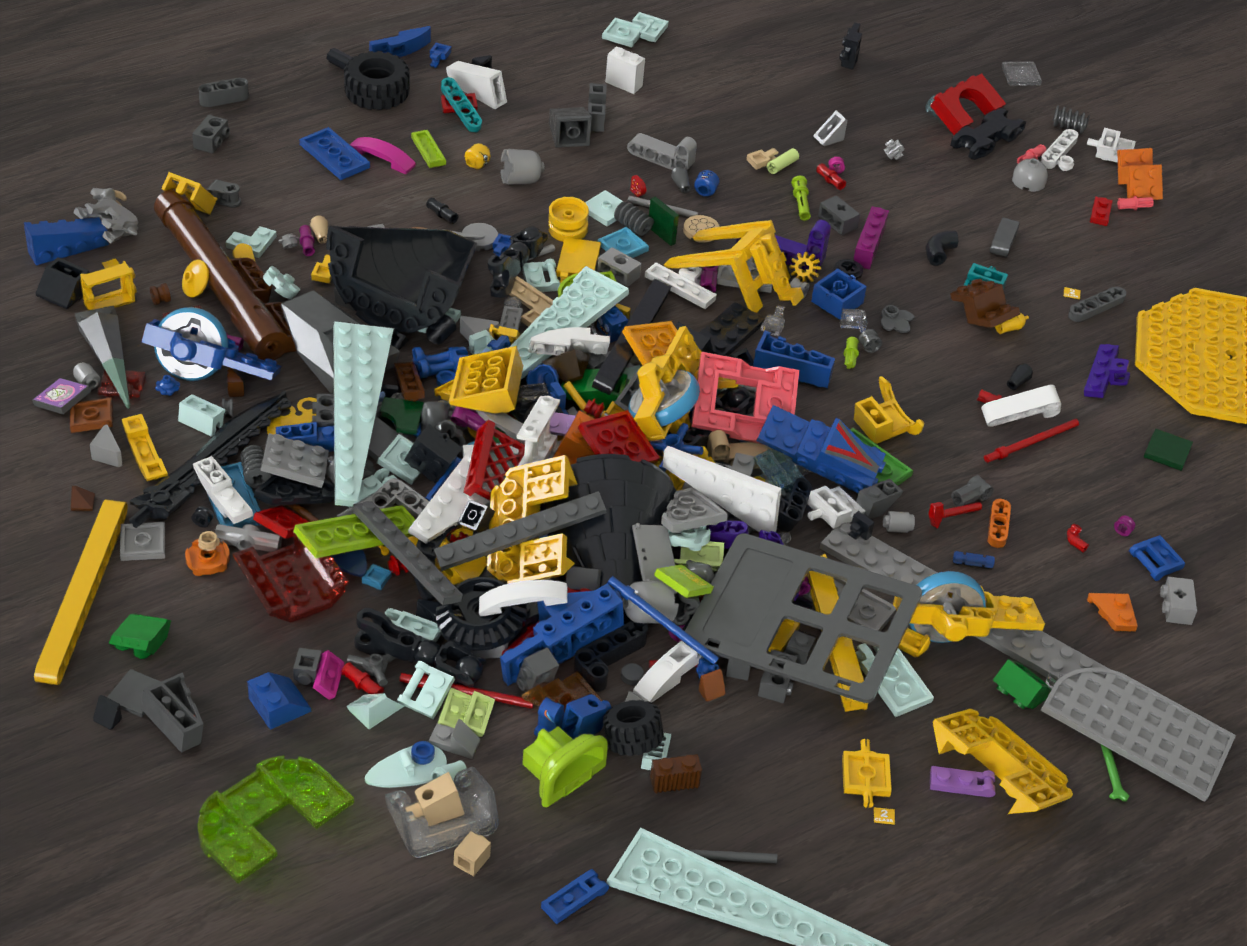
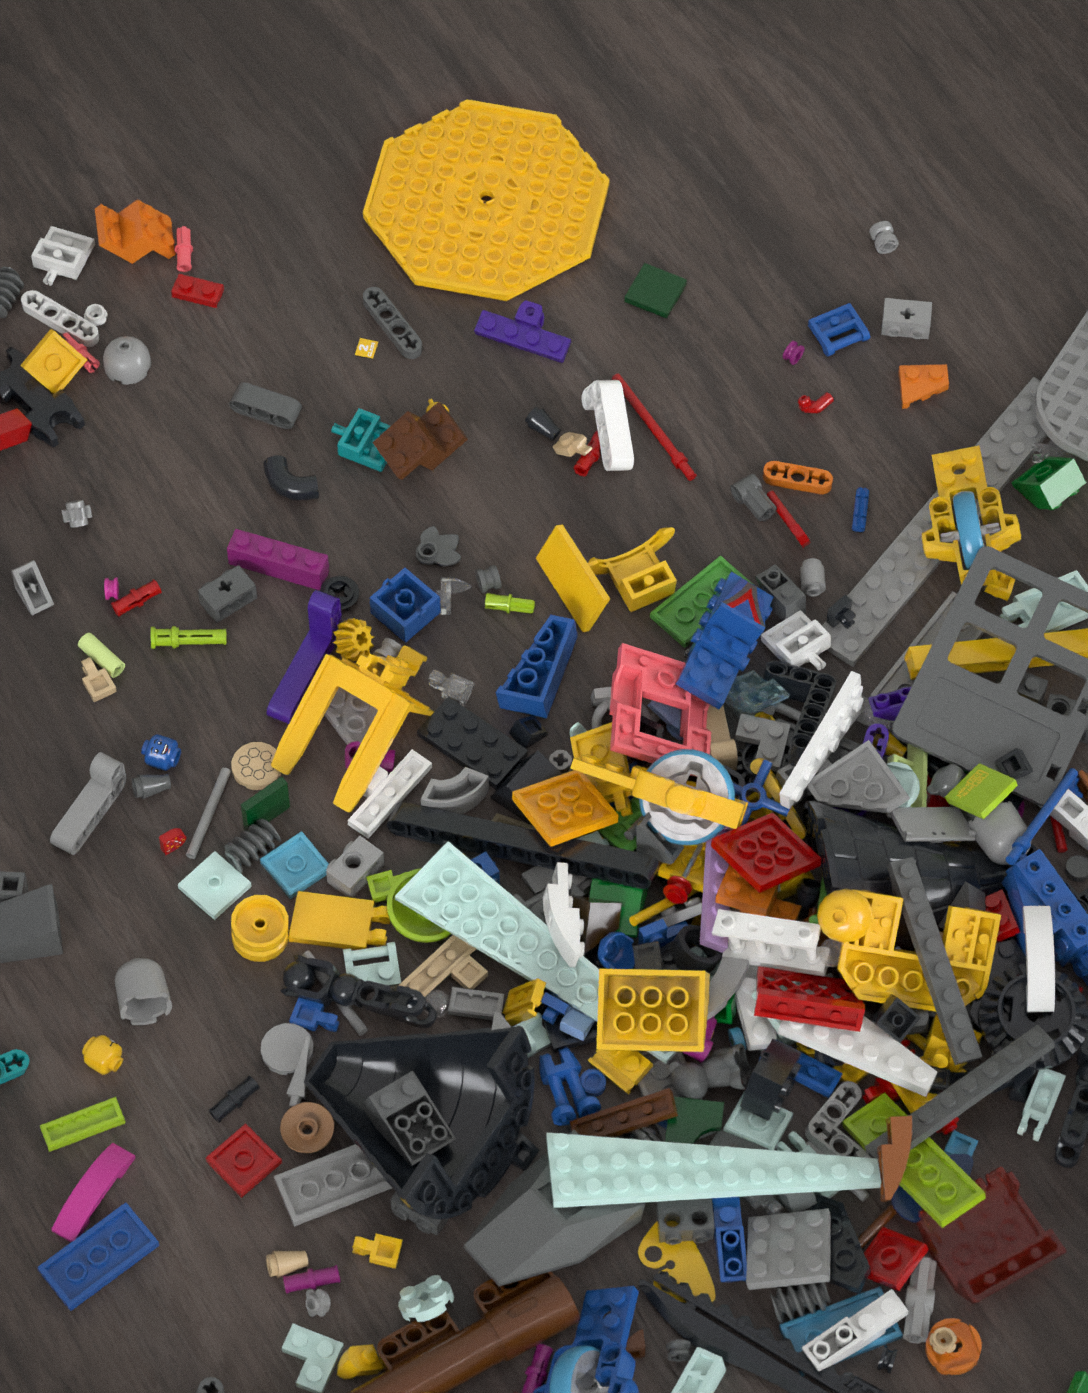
camera: 85 degrees left, 15 degrees up
(354, 502) = (894, 1155): none -> dark orange slope
(397, 213) = (243, 1160): none -> red plate
(407, 269) = (408, 1119): none -> dark grey slope
(543, 449) = (844, 915): none -> yellow cylinder
(678, 309) = (457, 793): none -> light grey brick
(715, 613) = (1014, 764): none -> black slope
(871, 378) = (572, 578): none -> yellow tile
(1002, 387) = (572, 443): none -> tan plate
(1013, 133) = (53, 362): none -> yellow plate

